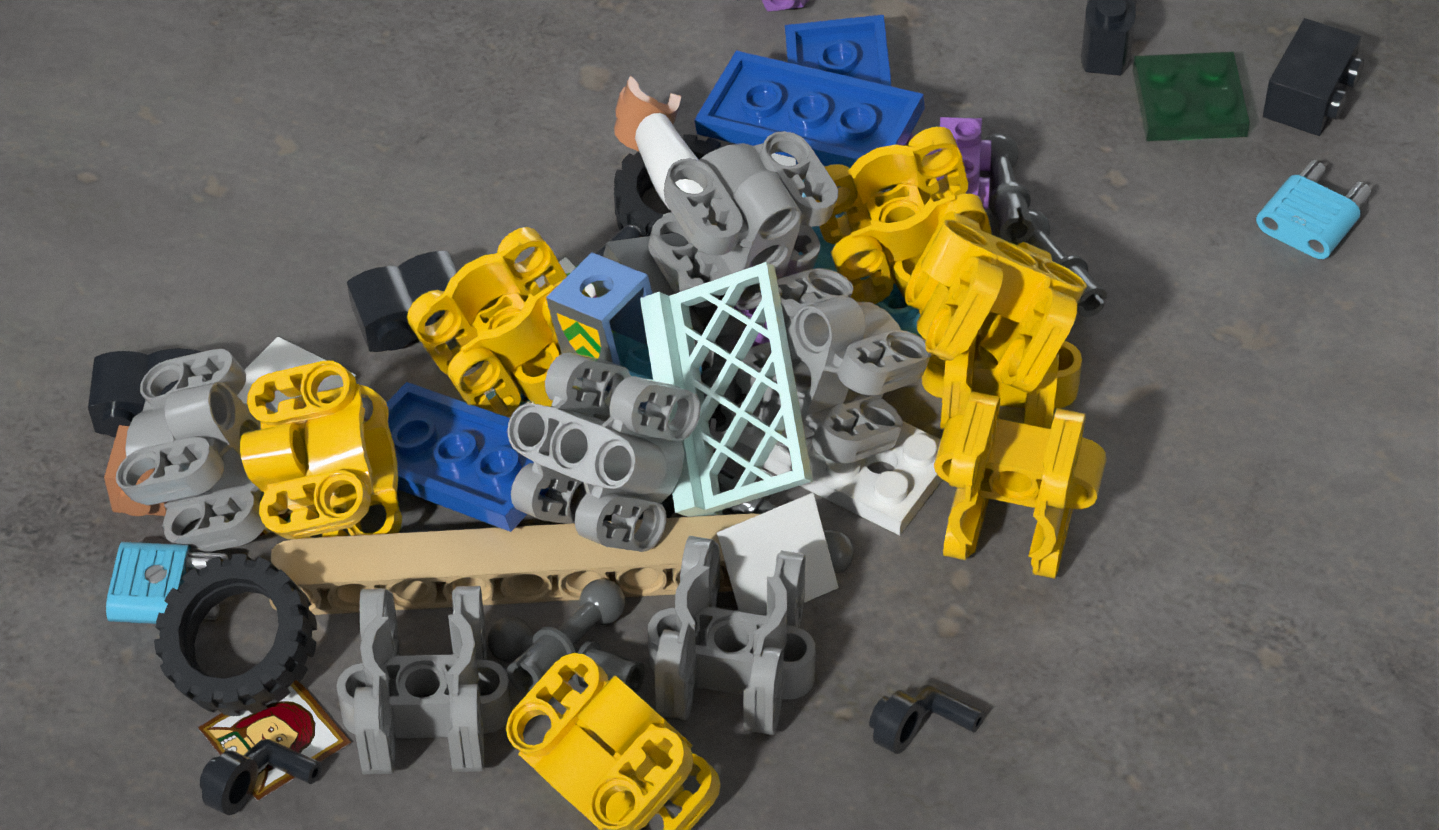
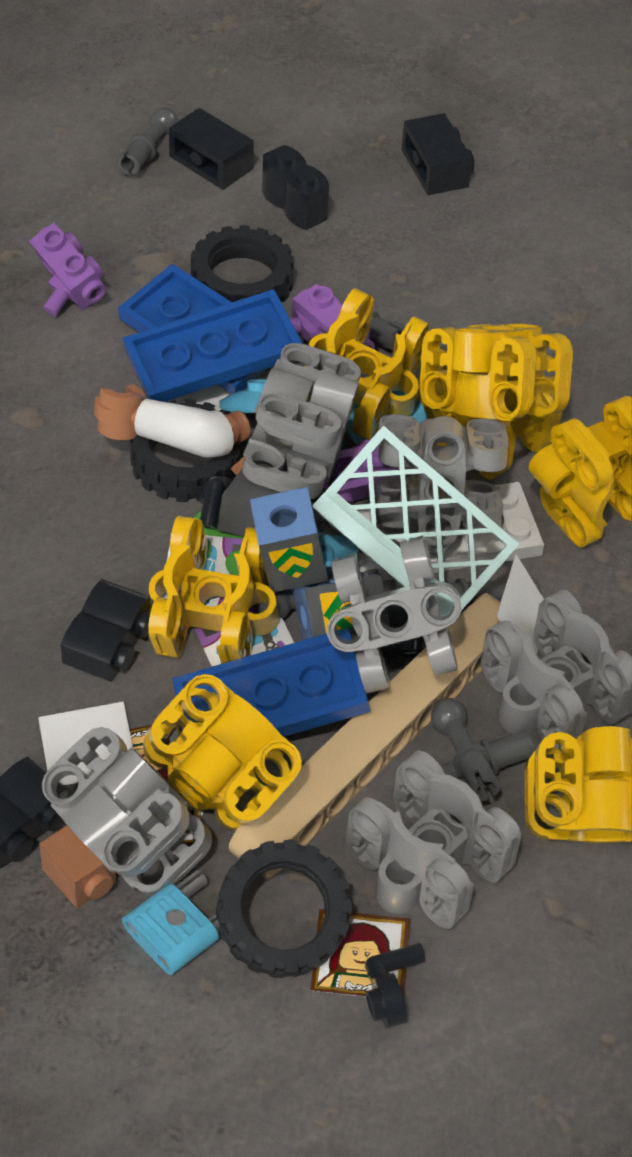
camera: 50 degrees left, 0 degrees up
(958, 32) = (248, 244): none -> black tyre
(1190, 96) = (382, 206): clear green plate -> none
(1311, 214) = (523, 230): medium azure piece -> none

